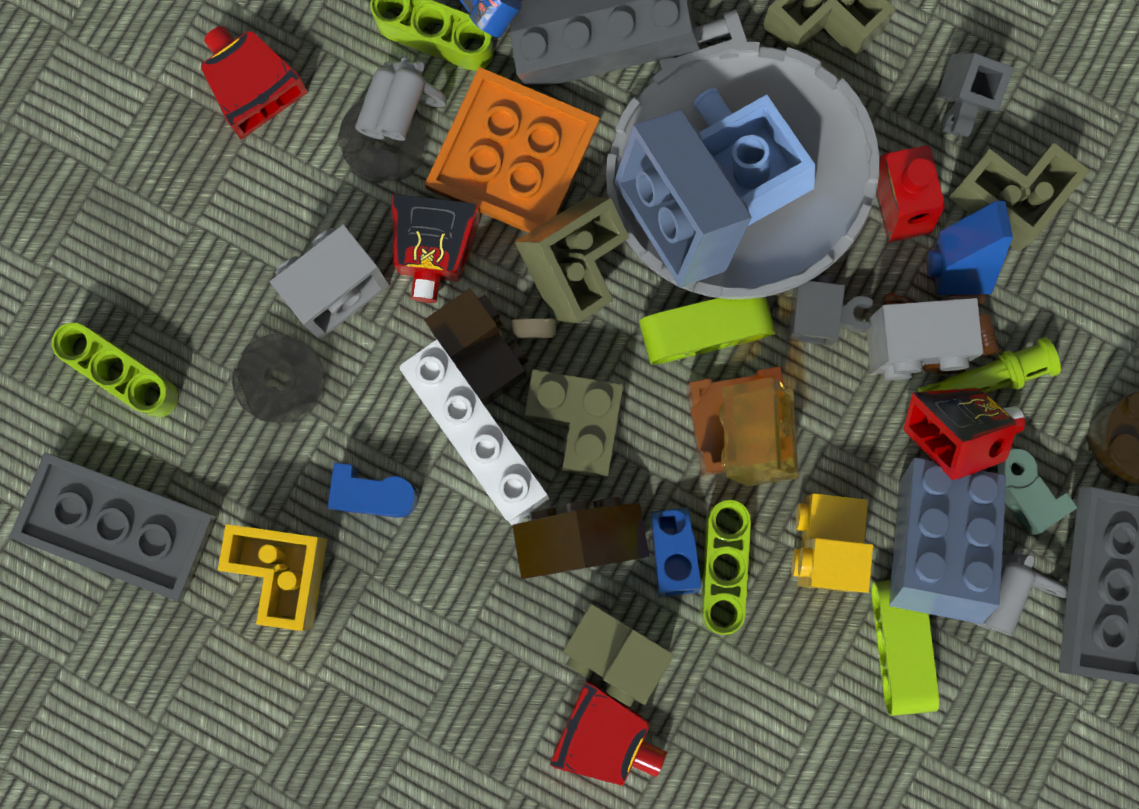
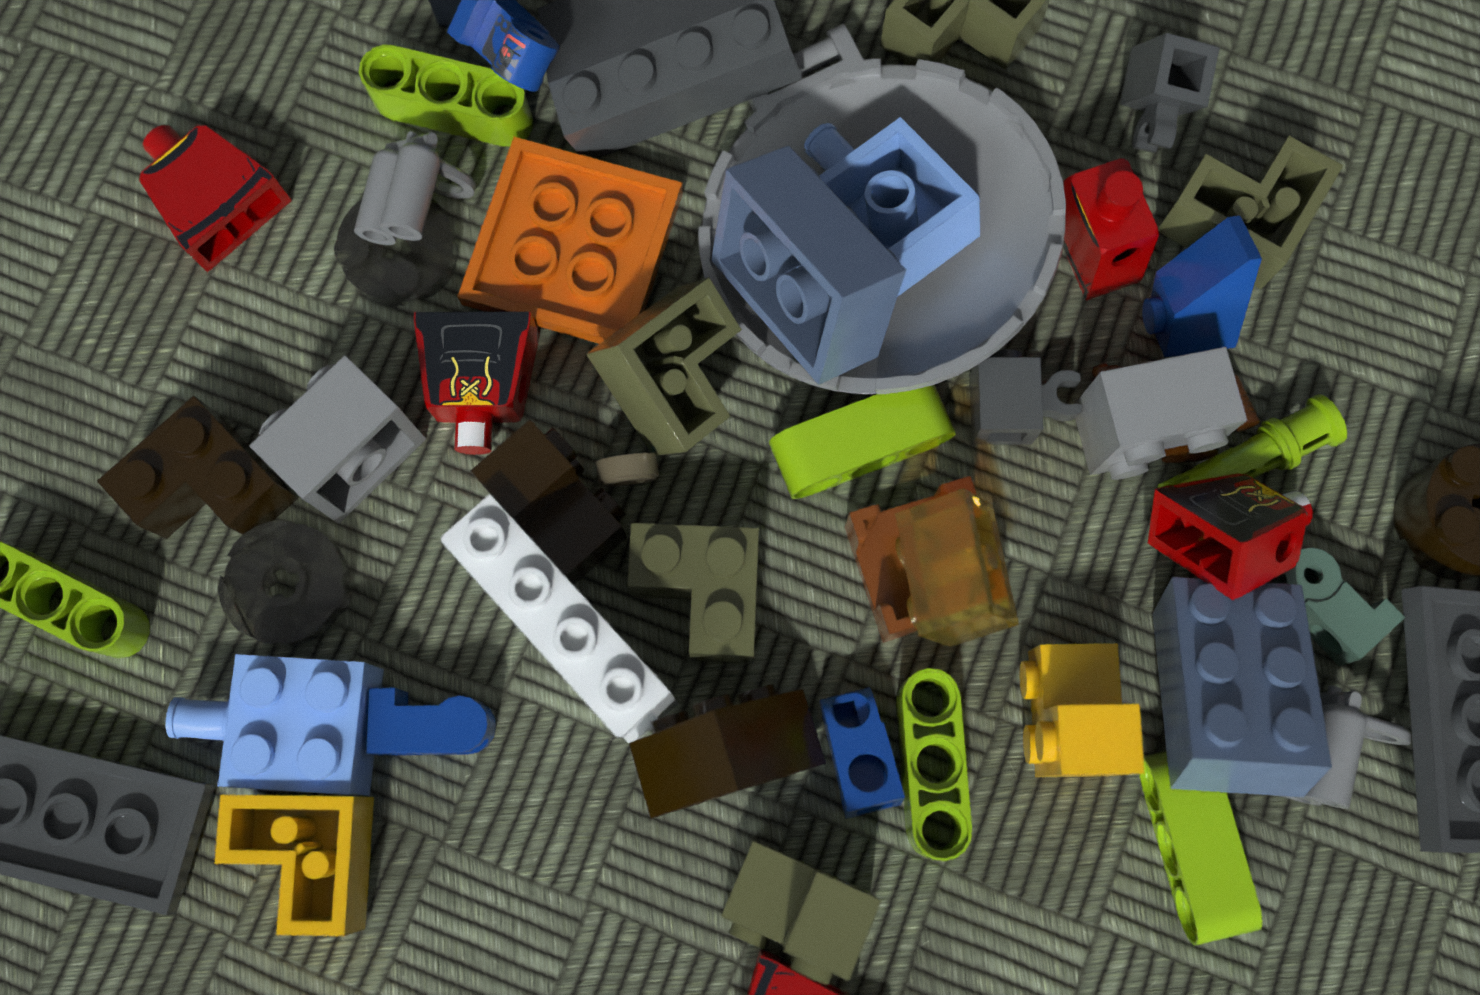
camera: 10 degrees left, 5 degrees down
(220, 284) = (191, 464): none -> dark brown brick
(274, 480) = (288, 725): none -> light blue brick

